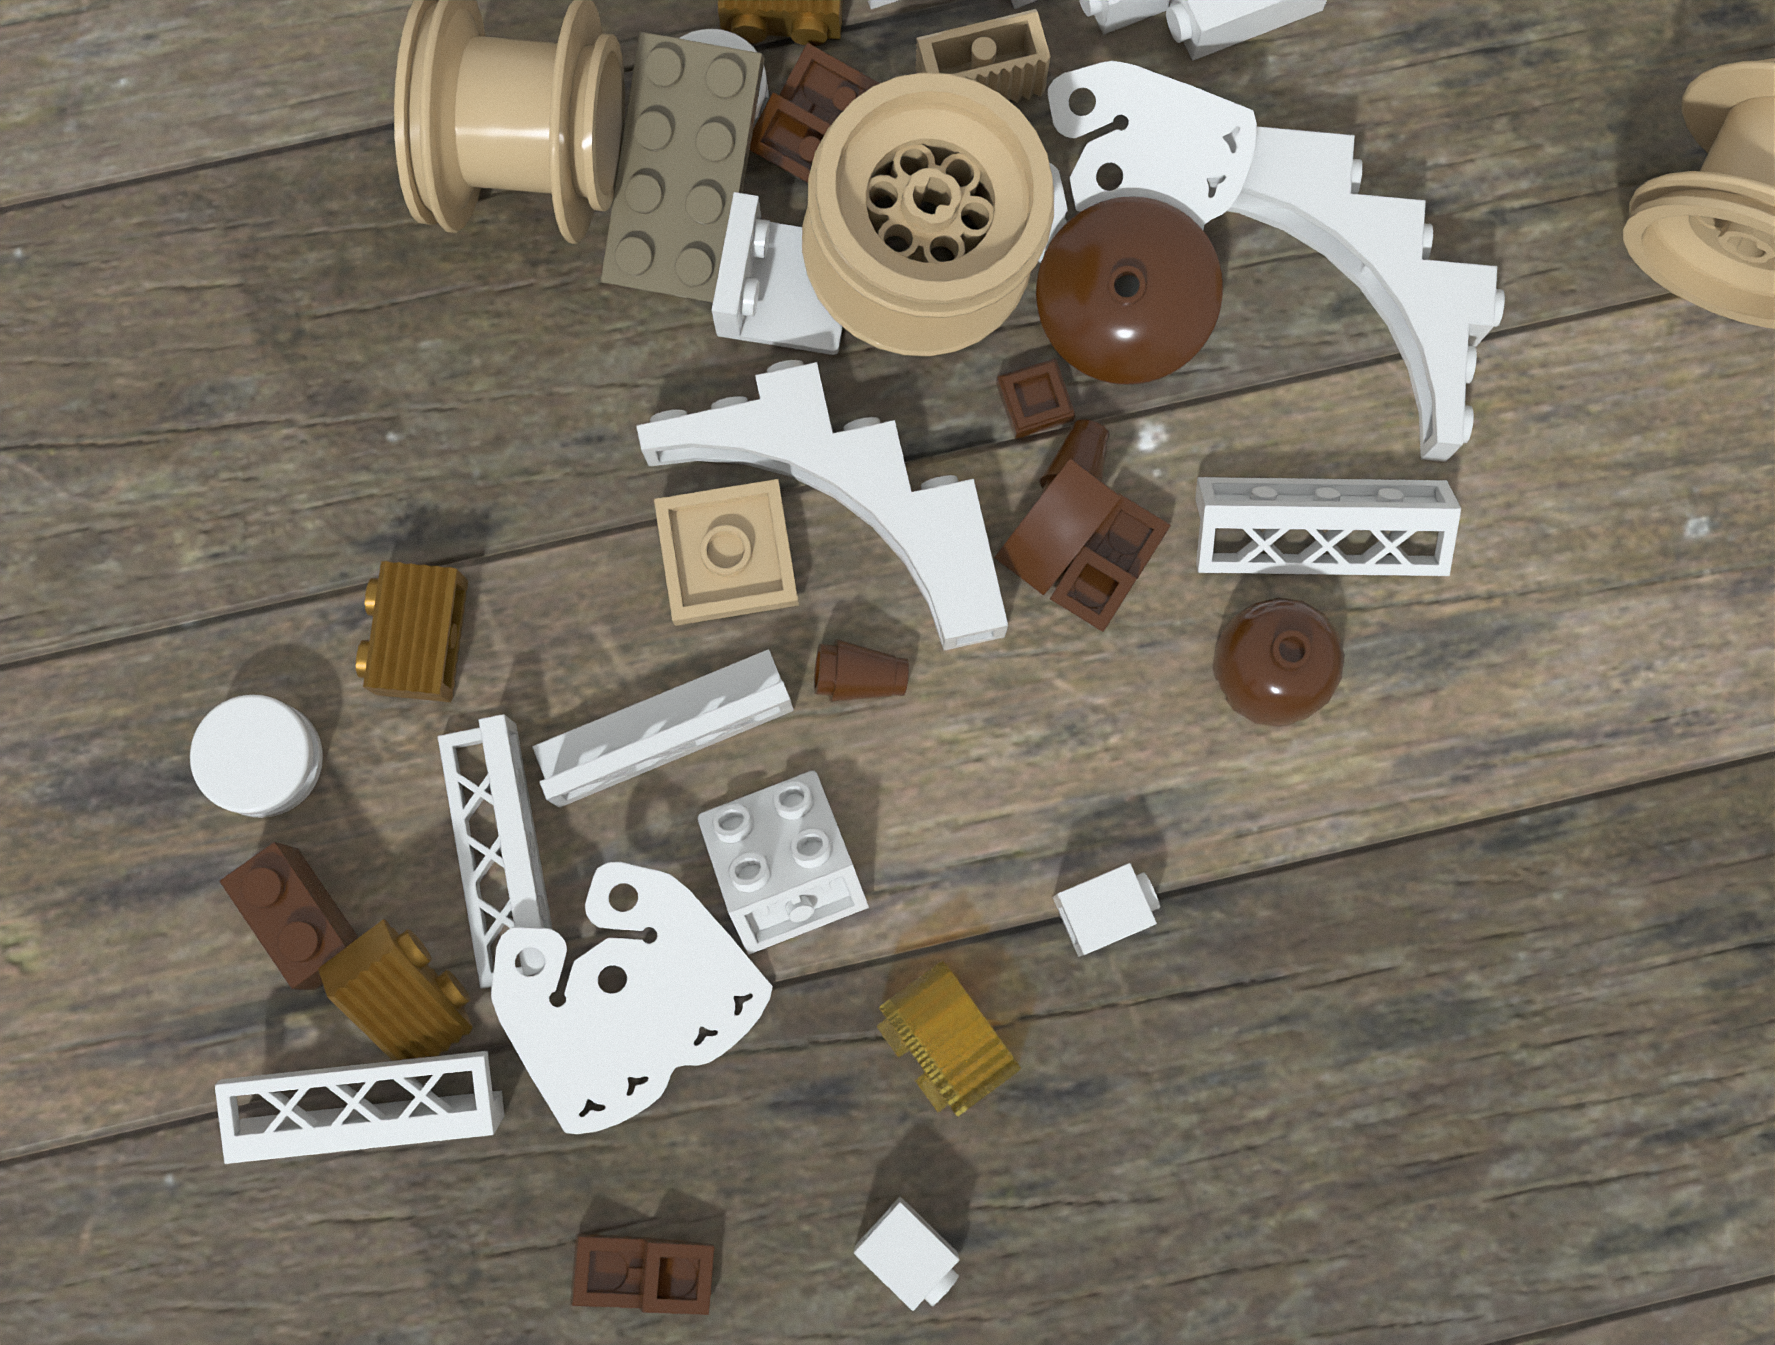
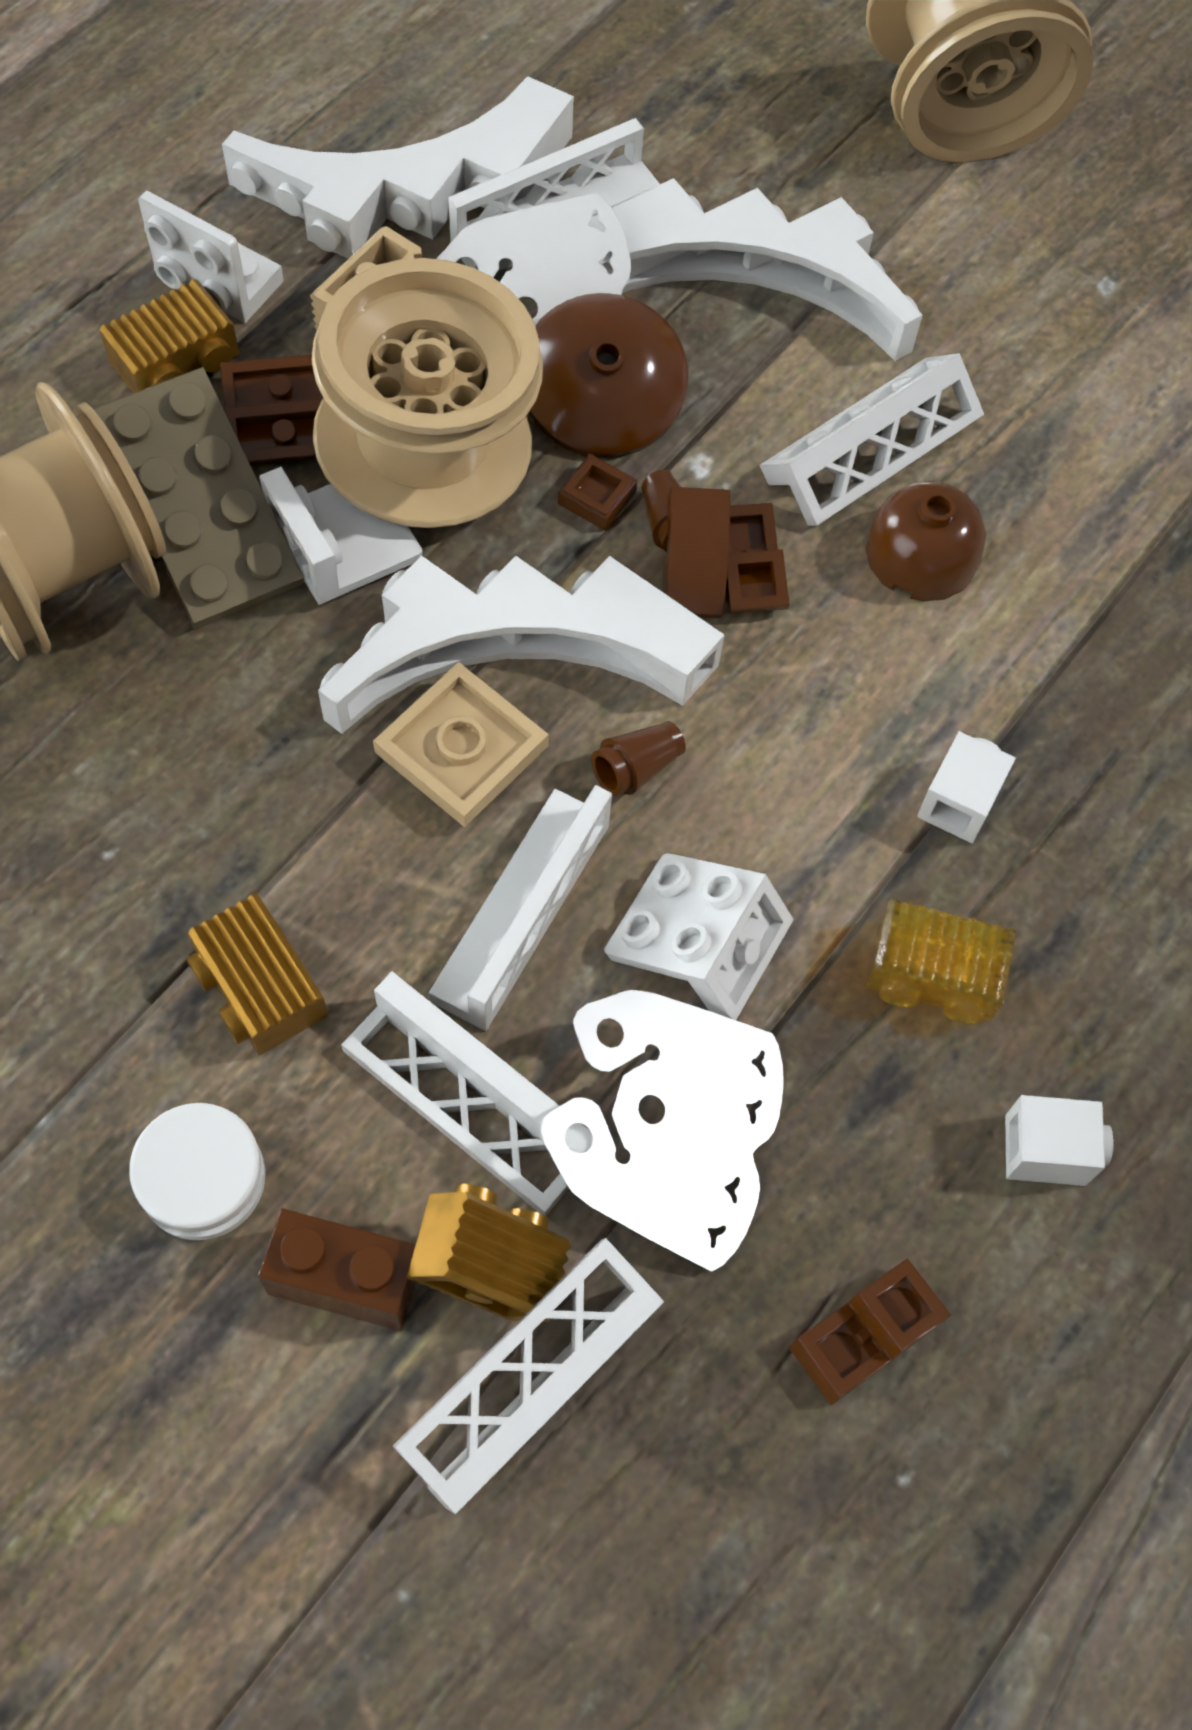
camera: 45 degrees left, 15 degrees down
(1282, 92) = (613, 180): none -> white fence

